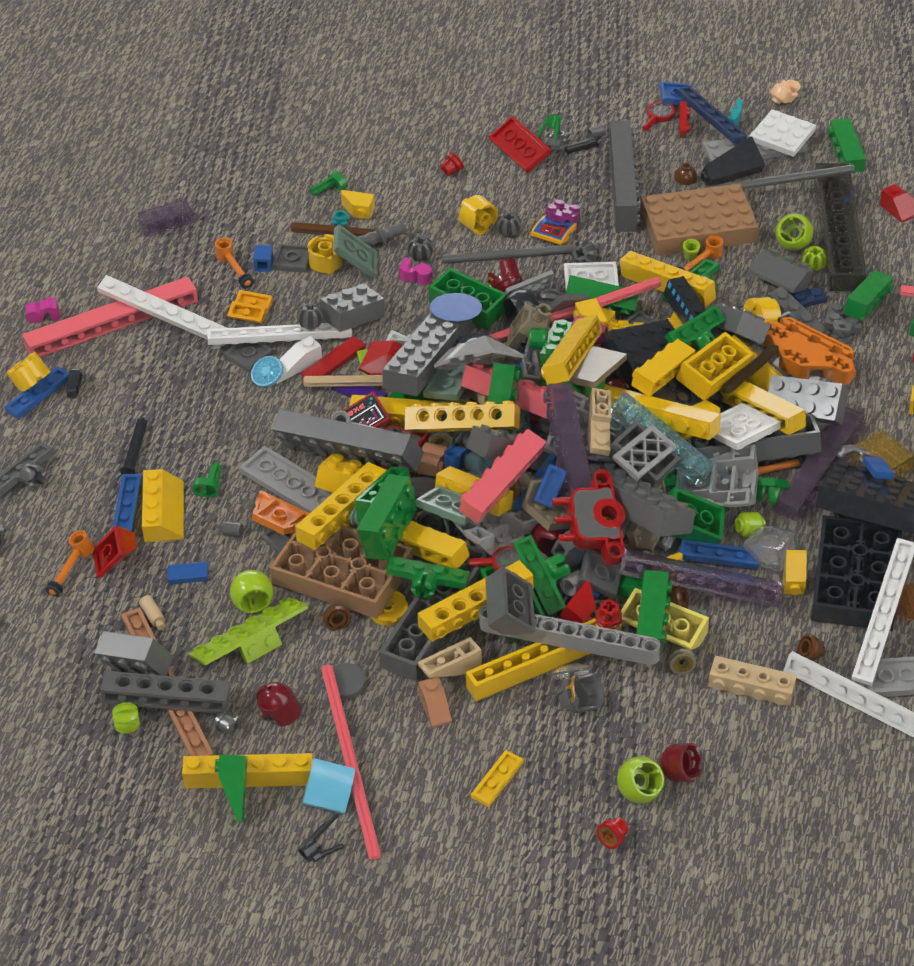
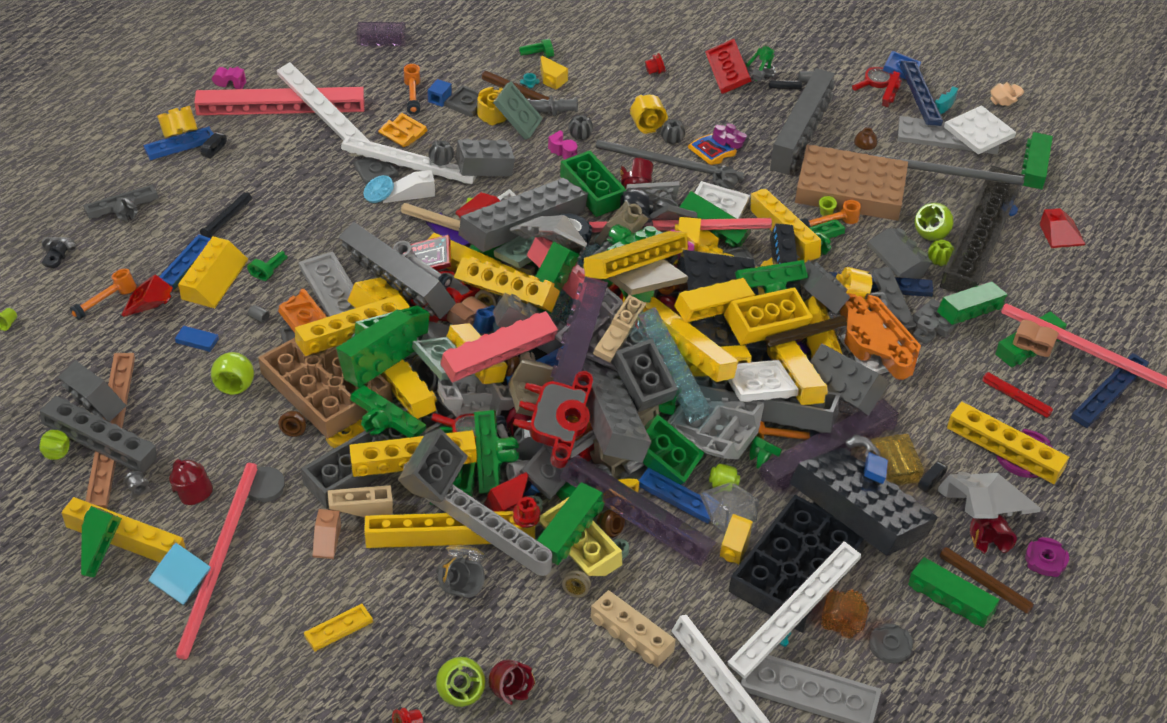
camera: 20 degrees right, 0 degrees up
(152, 612) = (143, 361): tan cylinder -> none
(253, 637) = (210, 415): lime bracket -> none
(310, 848) = (129, 624): black plant -> none
(335, 358) = (445, 198): red tile -> none
(455, 307) = (571, 186): sticker -> none
(550, 485) = (538, 369): blue tile -> none
(641, 438) = (637, 358): light grey window -> none
(734, 164) = (915, 143): black slope -> none
(810, 647) = (708, 619): reddish brown brick -> none

